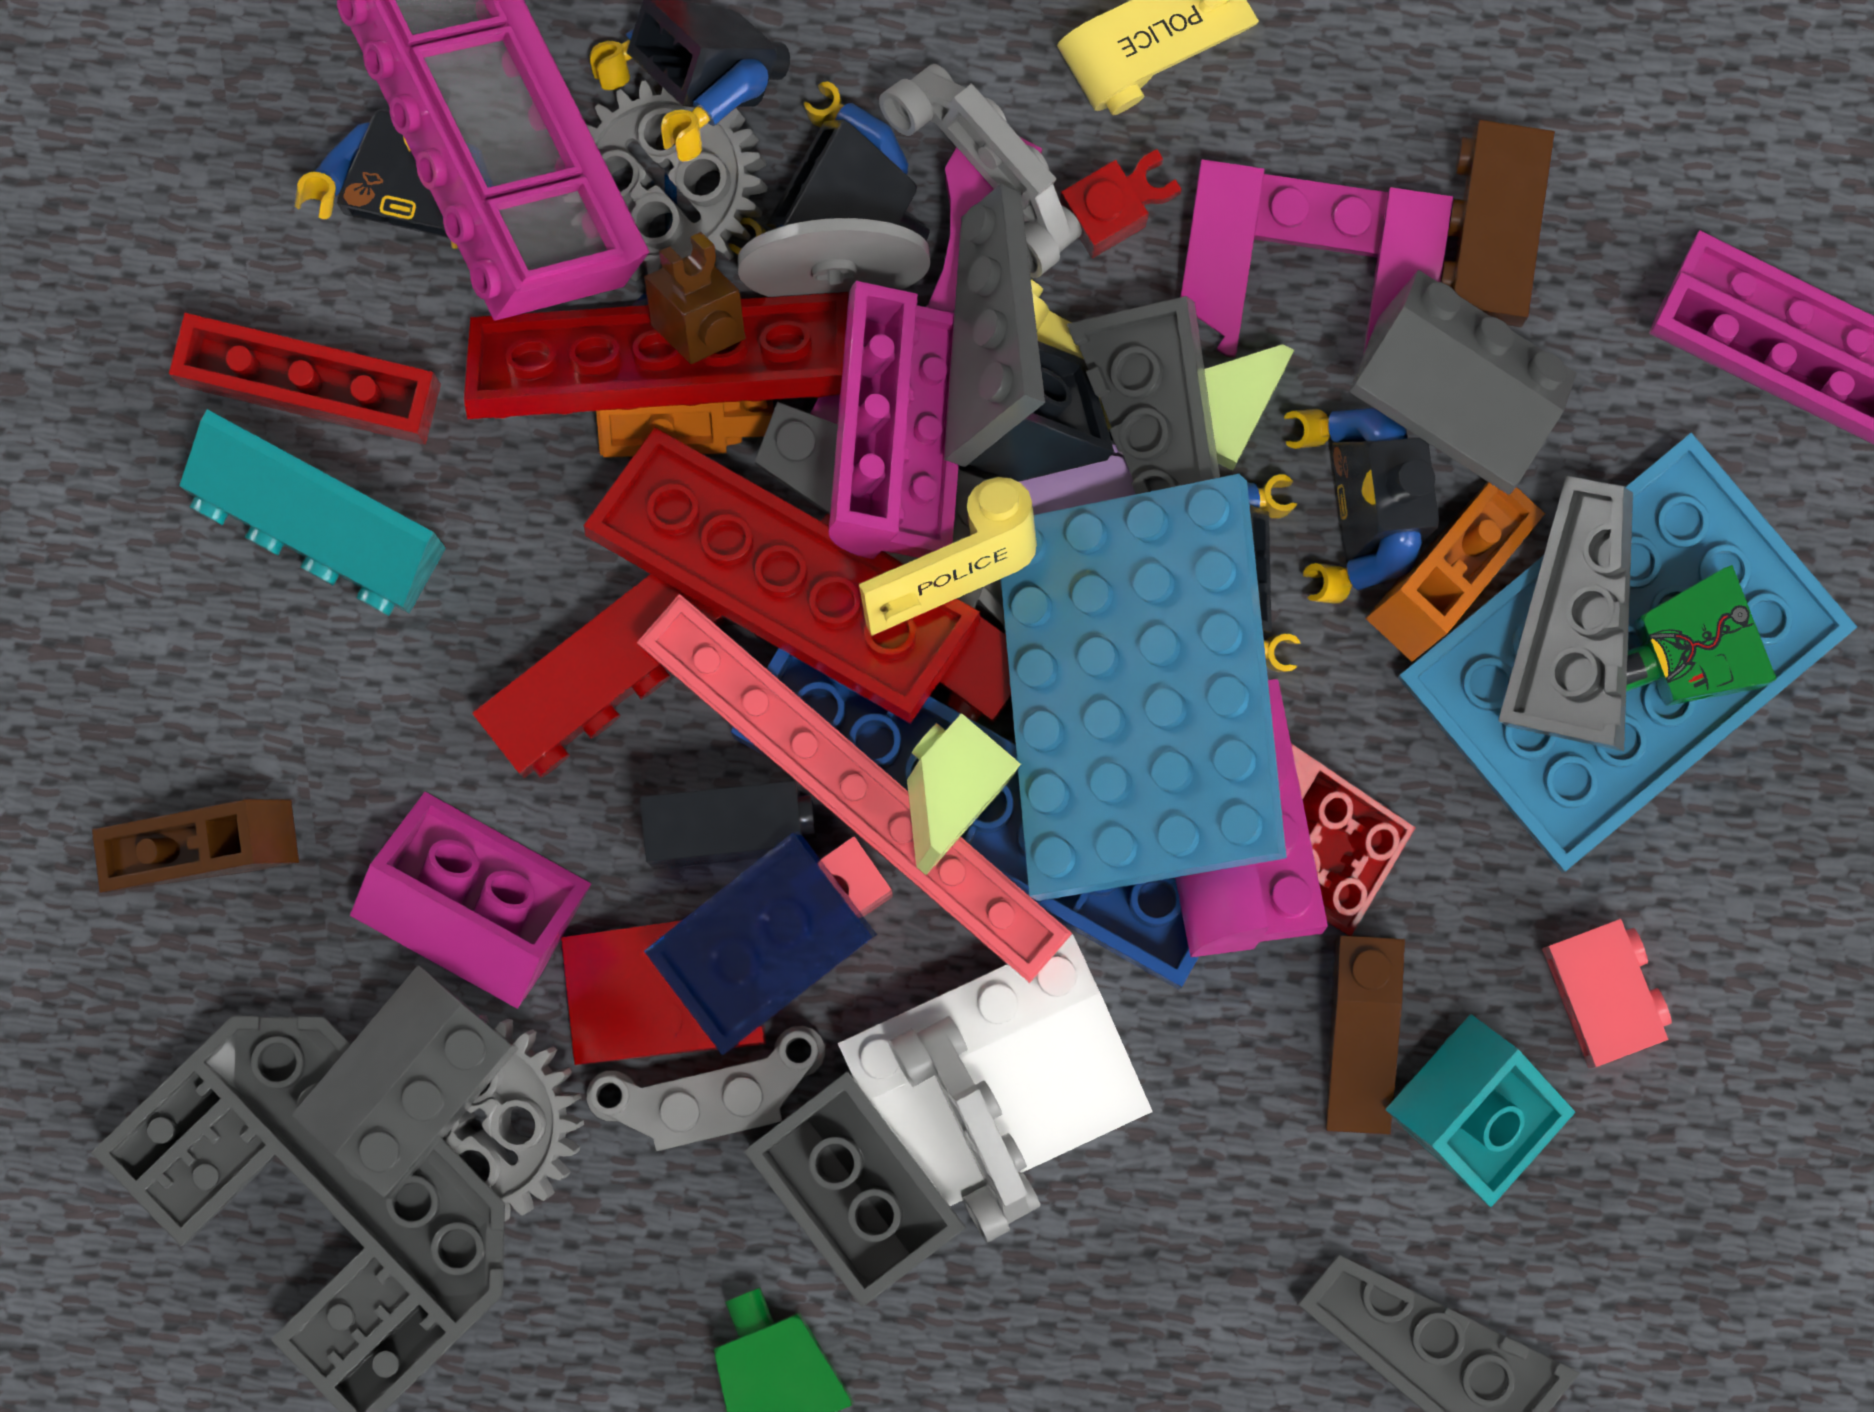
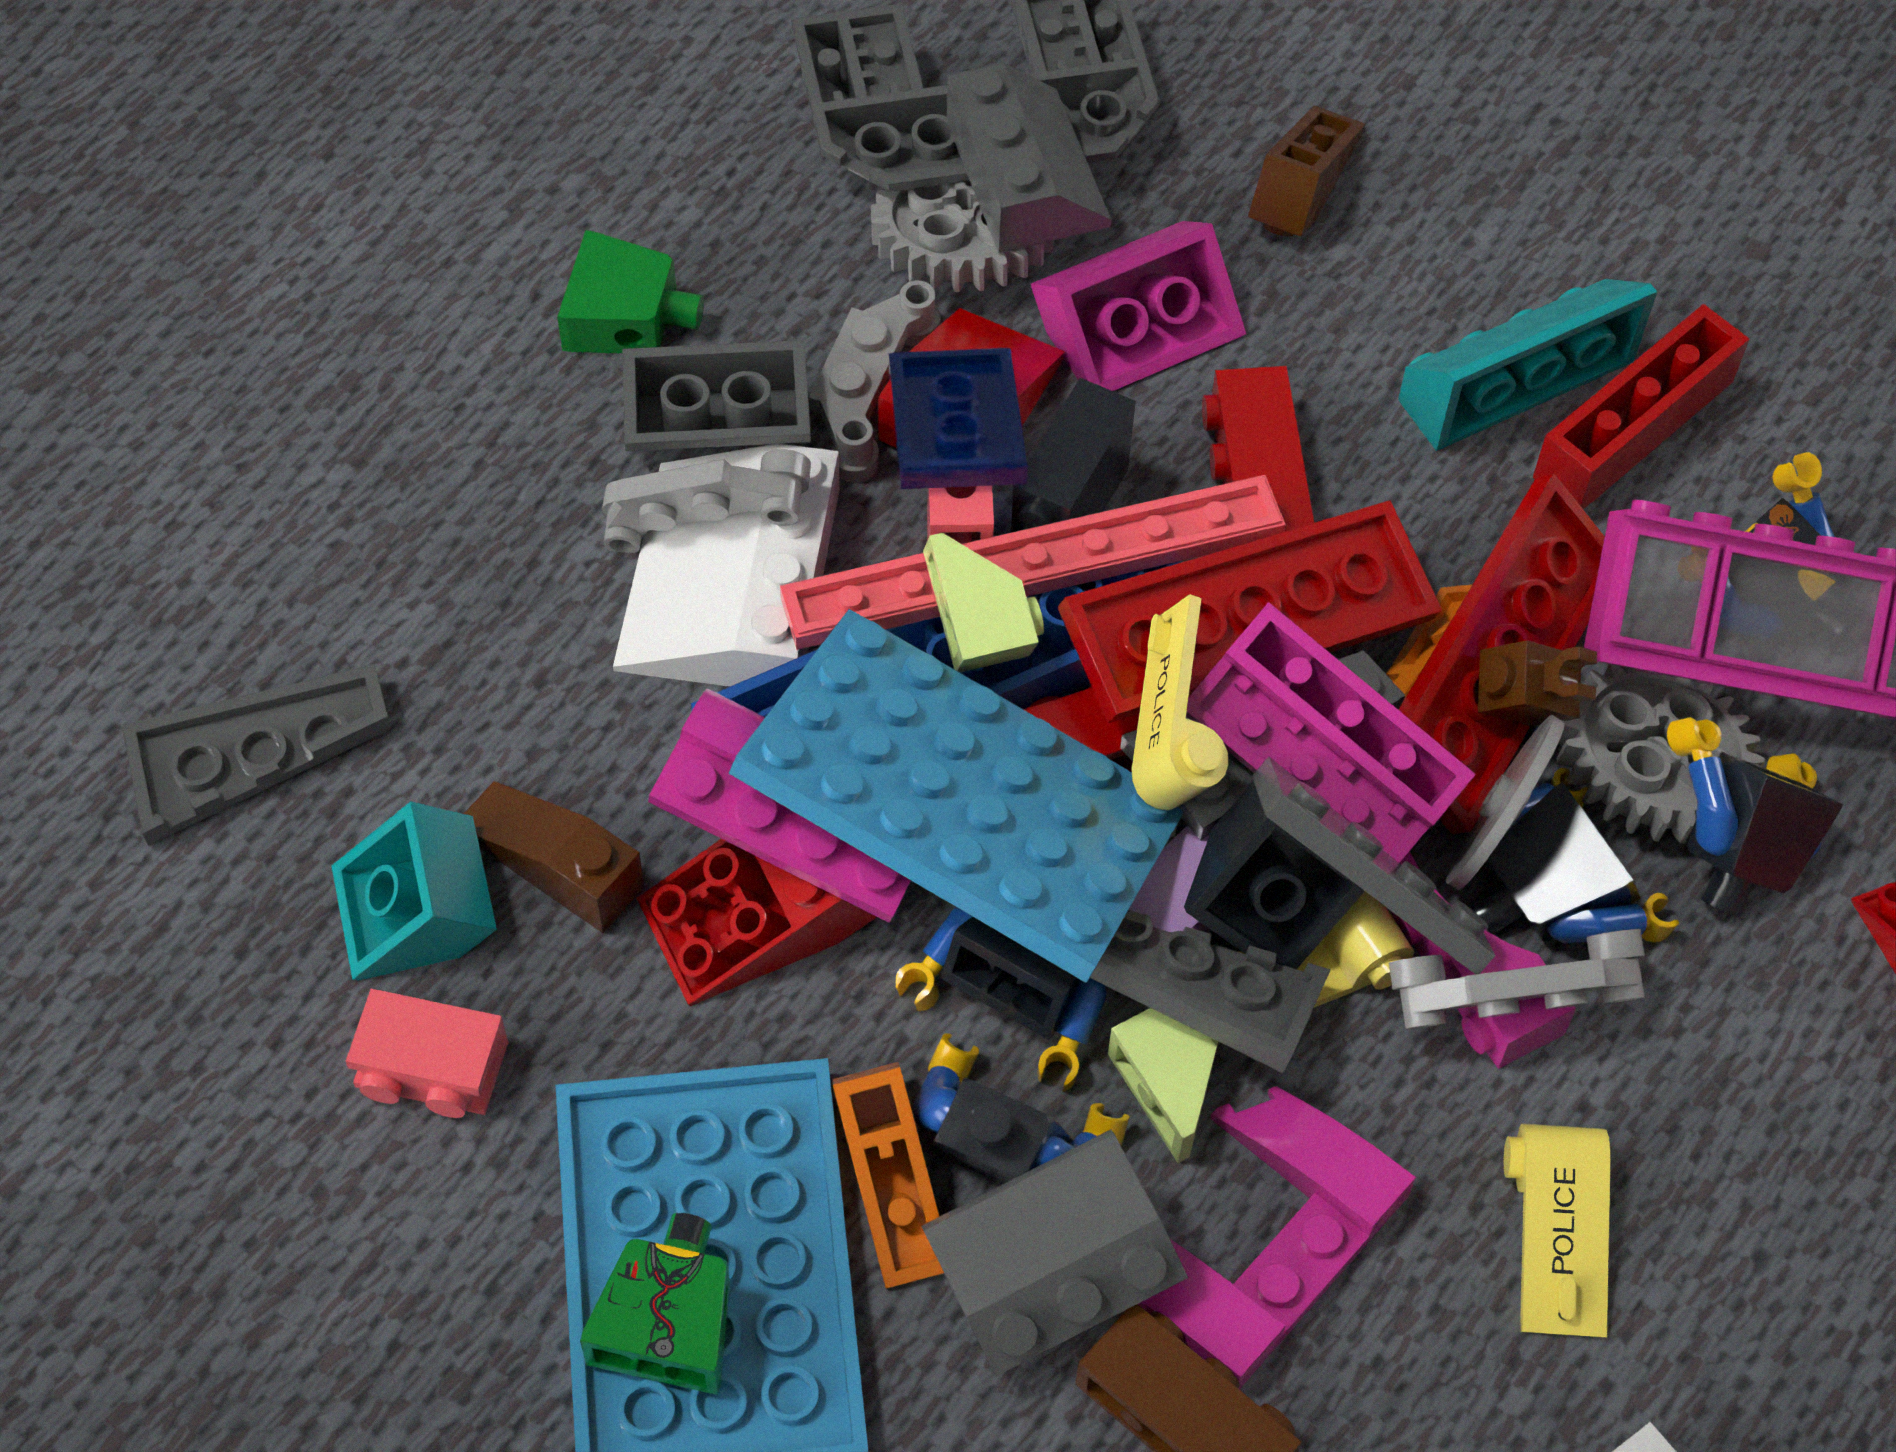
camera: 120 degrees right, 25 degrees down
(1113, 205) = (1419, 1082): red brick -> none
(1575, 636) = (756, 1207): wing -> none

